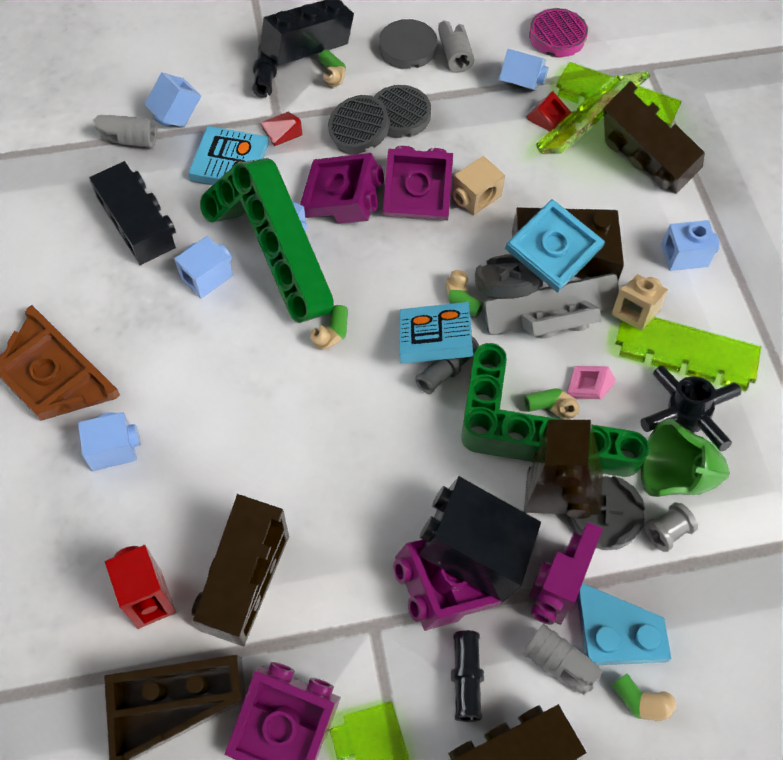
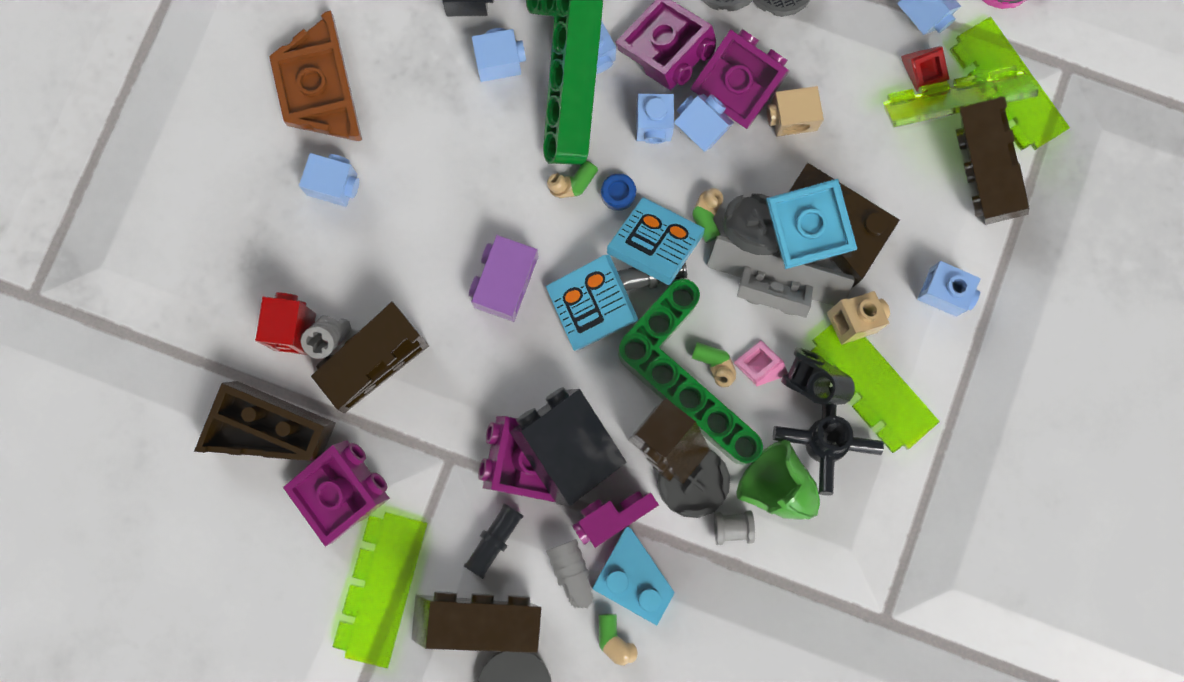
camera: 30 degrees right, 20 degrees up
(173, 576) = (324, 329): none -> light grey hinge
(325, 435) = (503, 278): none -> medium lavender brick
(369, 244) = (654, 118): none -> light blue brick
(376, 318) = (618, 192): none -> blue tile
(410, 224) = (703, 120): none -> light blue brick
(415, 411) = (592, 302): none -> medium azure tile
(641, 362) = (812, 378): none -> black piece

